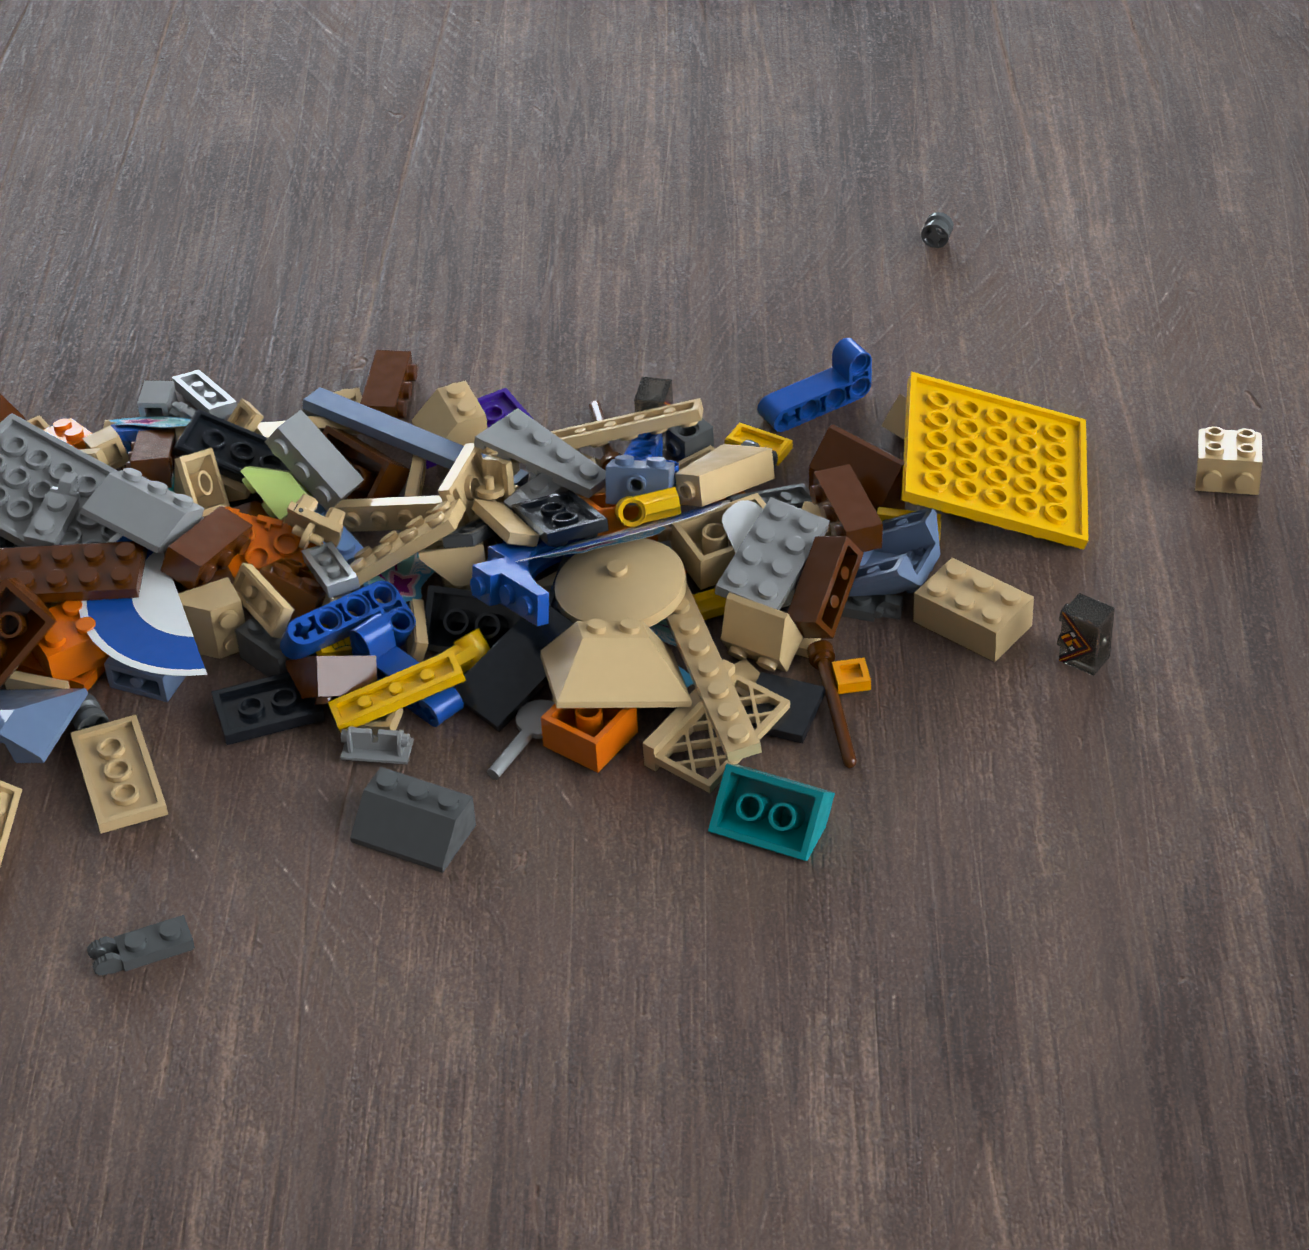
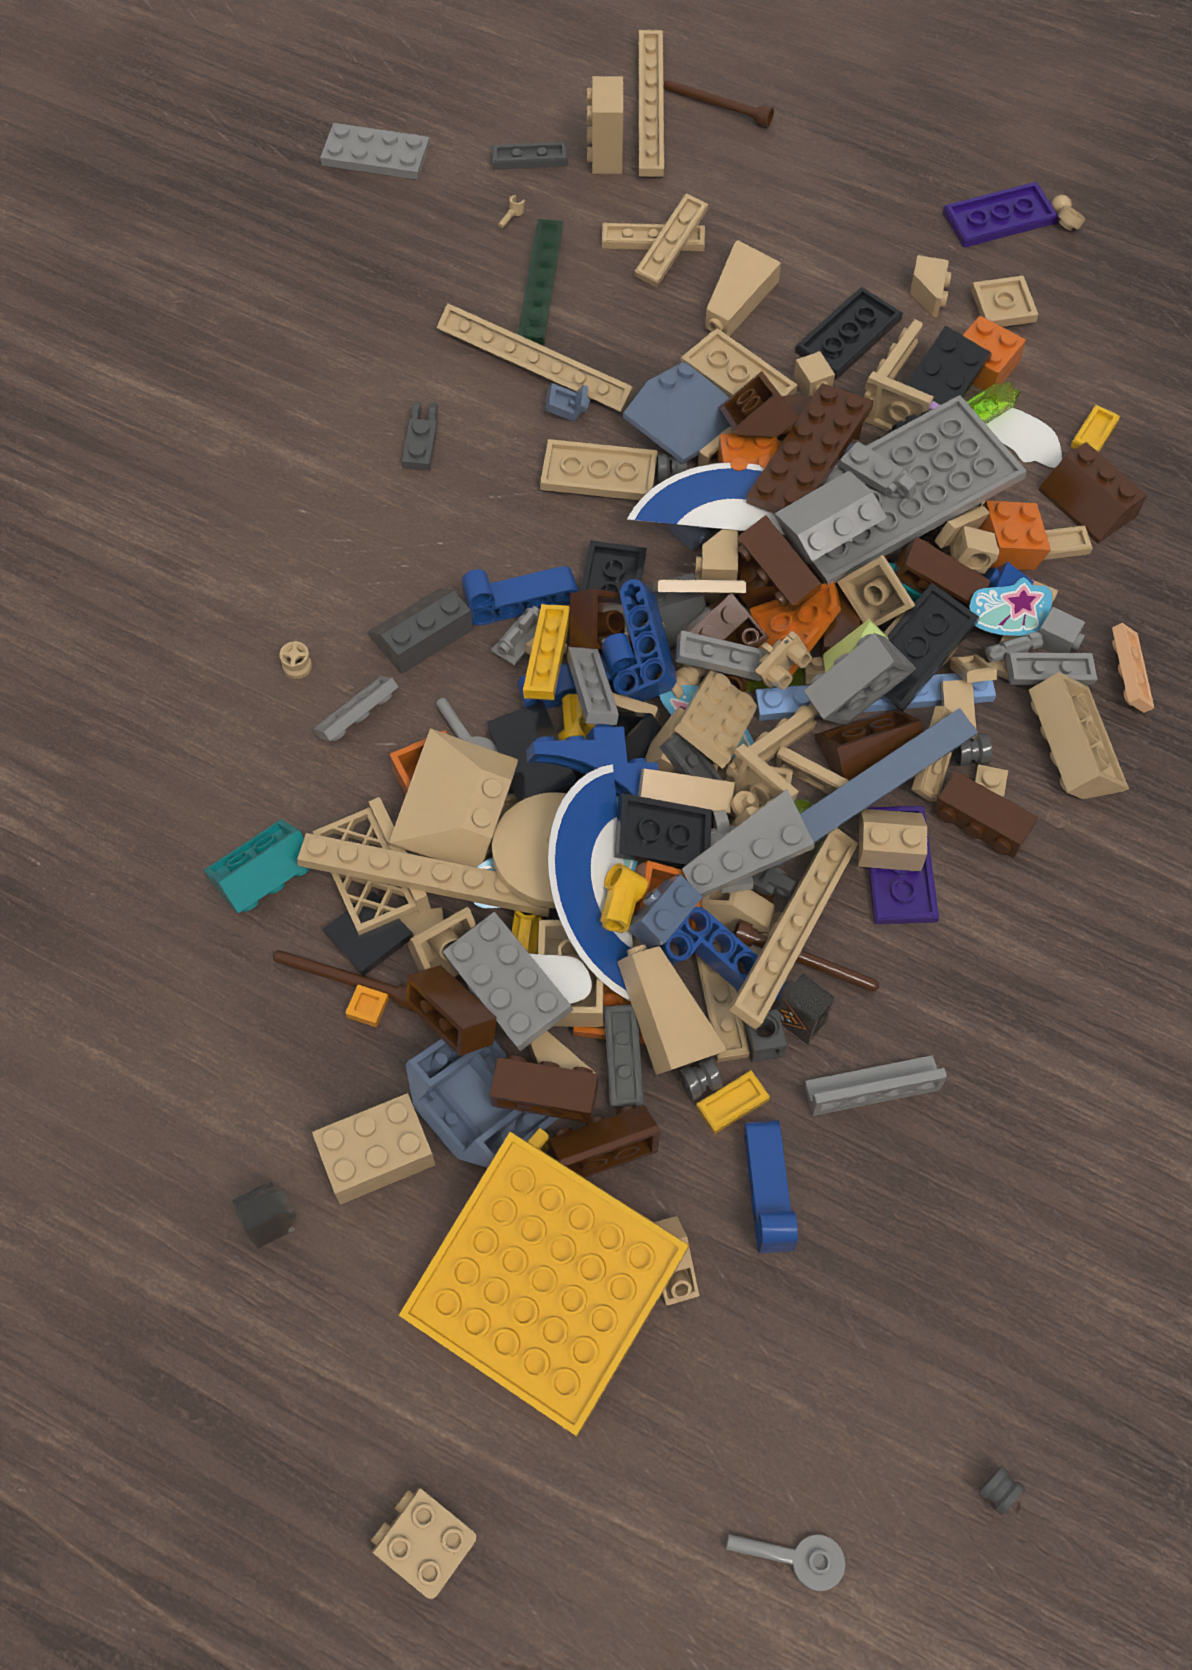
camera: 115 degrees right, 20 degrees up
(29, 831) = (566, 402): none -> sand blue bracket
(172, 356) = (1132, 668): none -> light nougat plate
(275, 361) = (1077, 738): none -> tan slope
(326, 762) = (513, 596): none -> blue beam
(431, 619) = (592, 686): none -> light grey plate
(518, 901) = (290, 654): none -> tan wheel
(547, 824) = (356, 709): none -> light grey plate
(686, 374) = (874, 1085): none -> light grey fence
(1062, 297) = (815, 1560): none -> light grey piece

